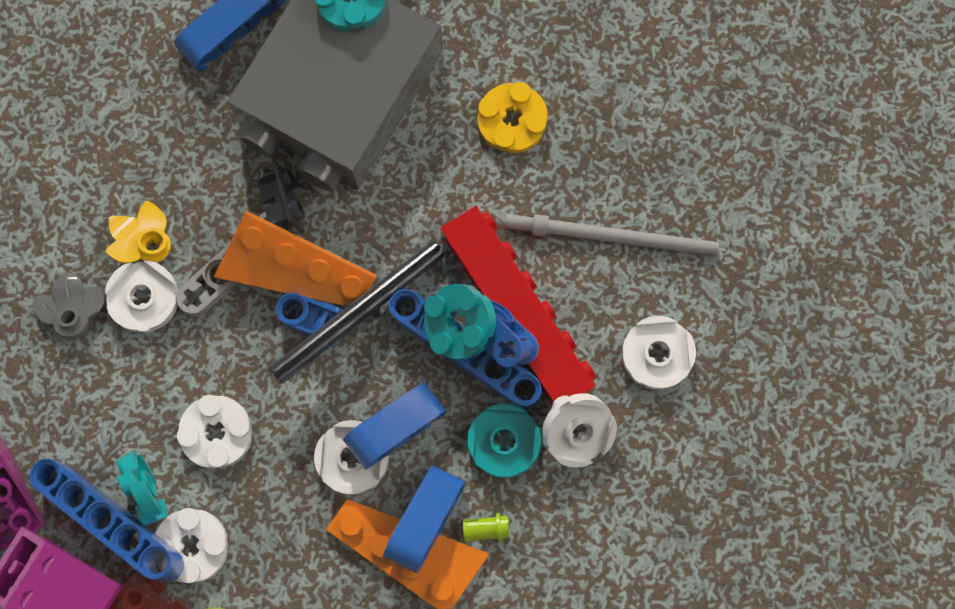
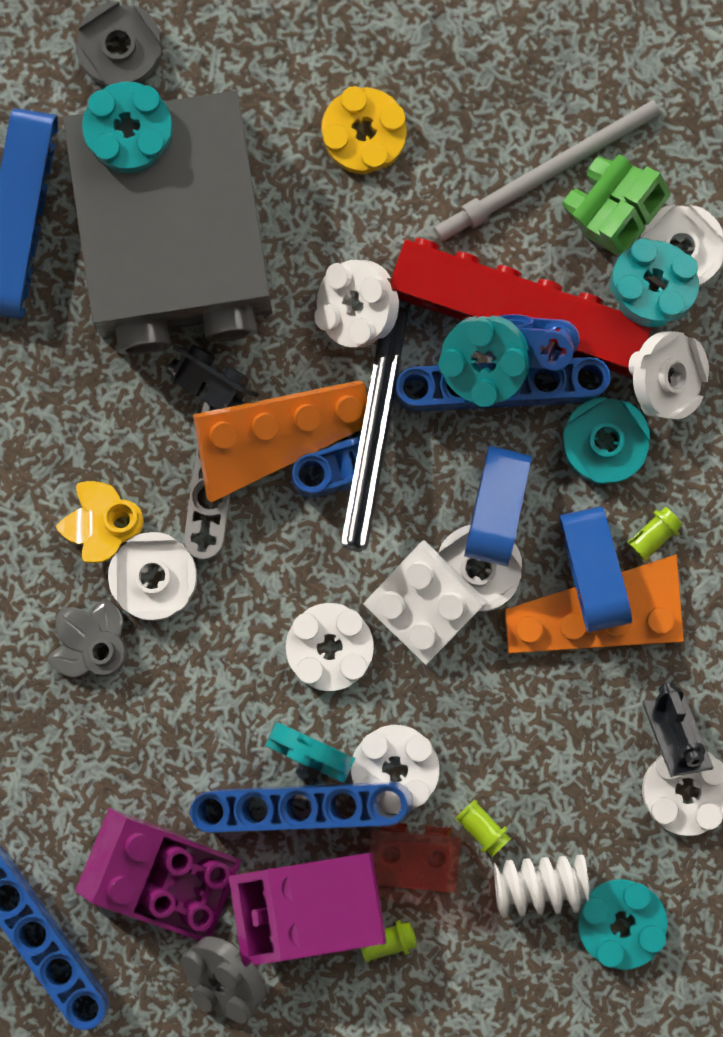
camera: 45 degrees left, 5 degrees up
(297, 451) = (425, 602): none -> white plate
(396, 220) = (335, 303): none -> white plate
(627, 342) = (661, 260): none -> teal plate
(637, 288) = (617, 202): none -> bright green hips

